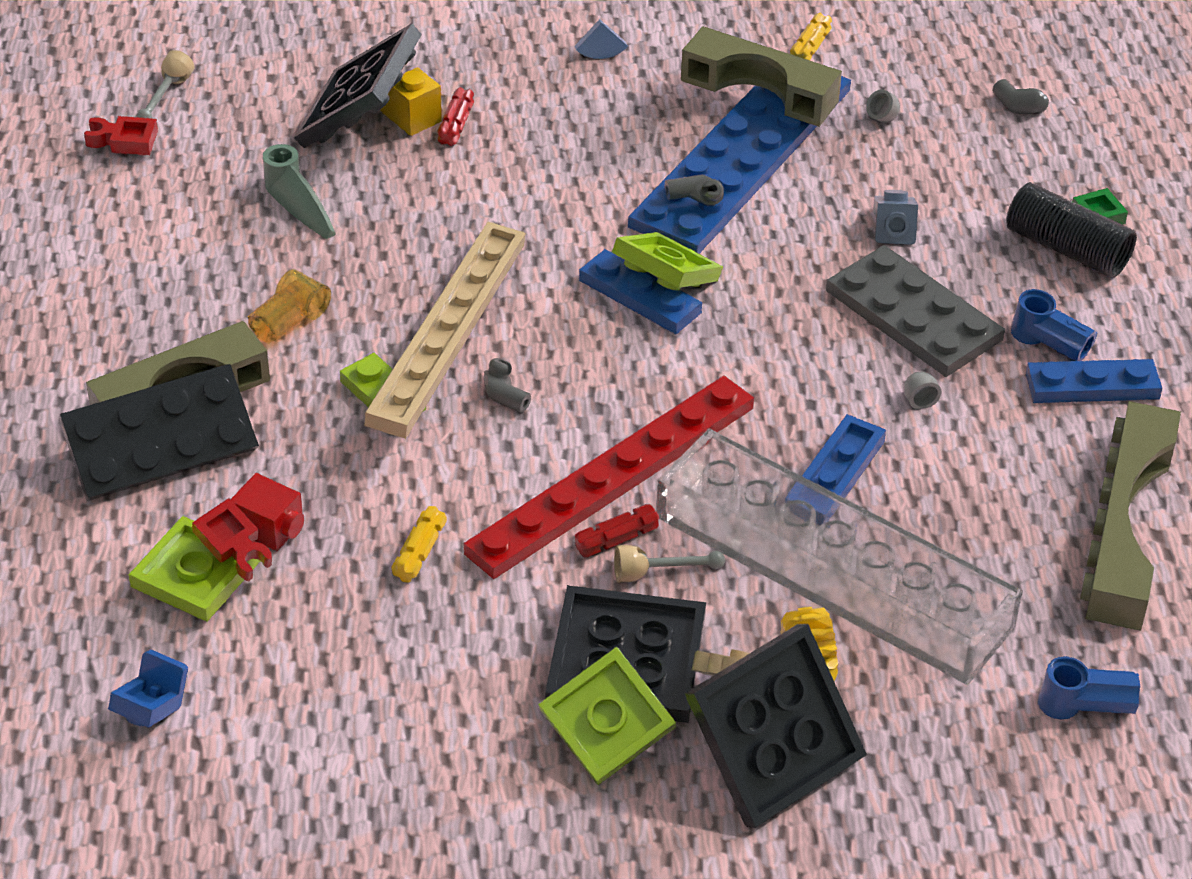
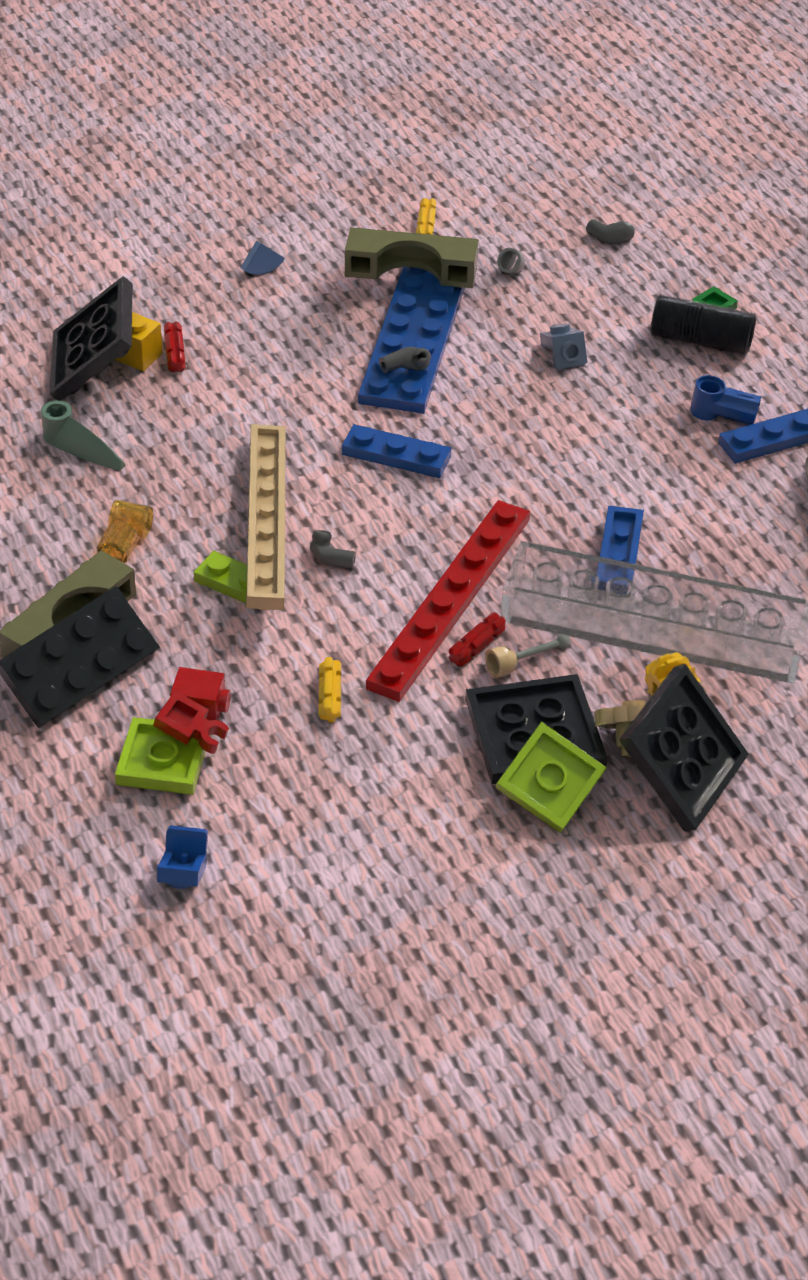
camera: 20 degrees left, 0 degrees up
(668, 260) = (421, 423): lime plate -> none
(915, 310) = (614, 414): dark grey plate -> none
(922, 390) = (652, 473): light grey hinge -> none

